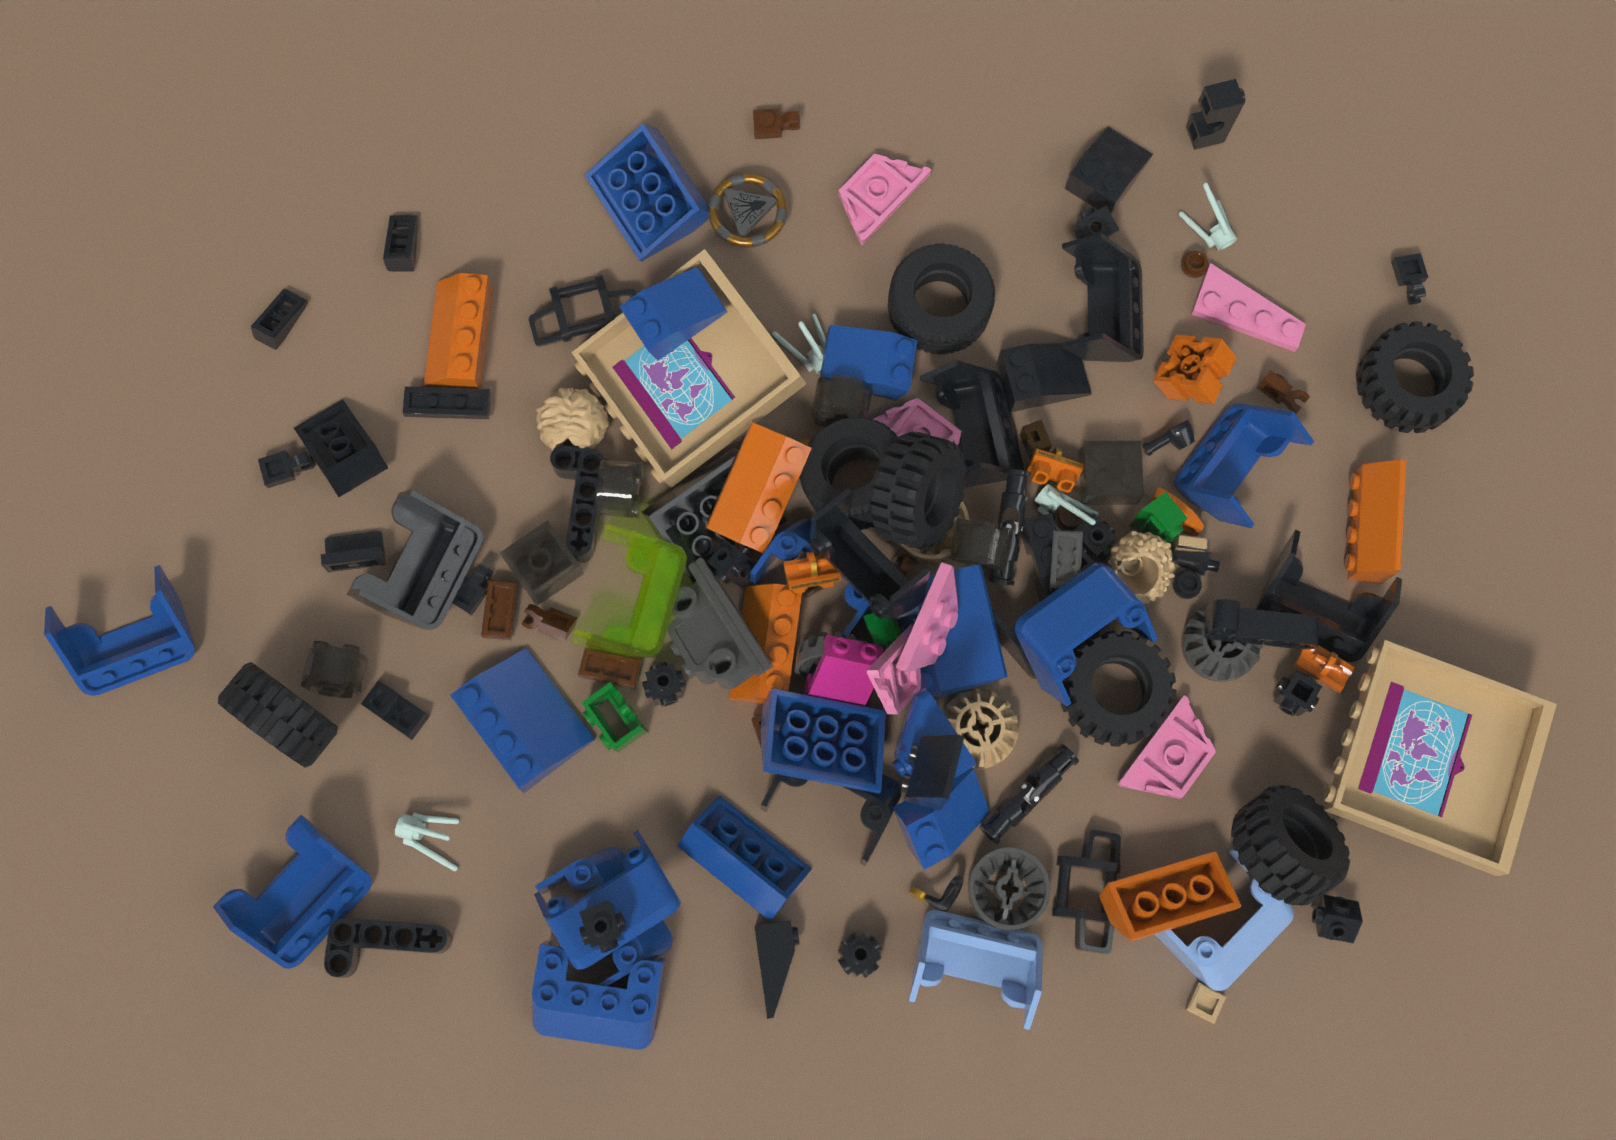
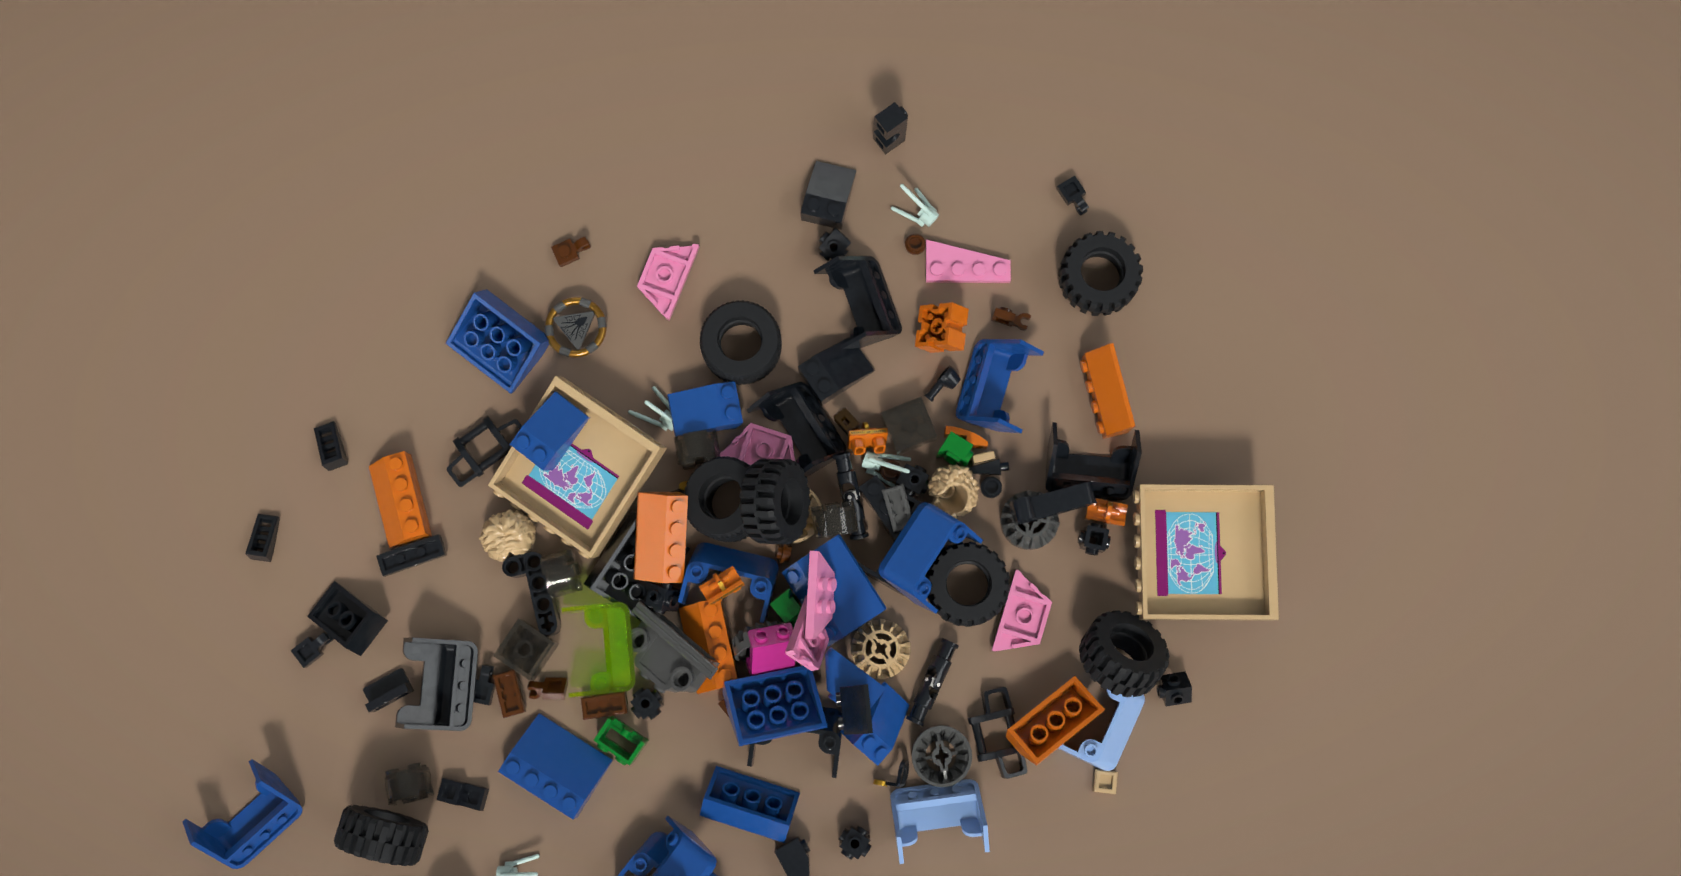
camera: 15 degrees left, 5 degrees up
(863, 563) = (755, 568): black windscreen -> none

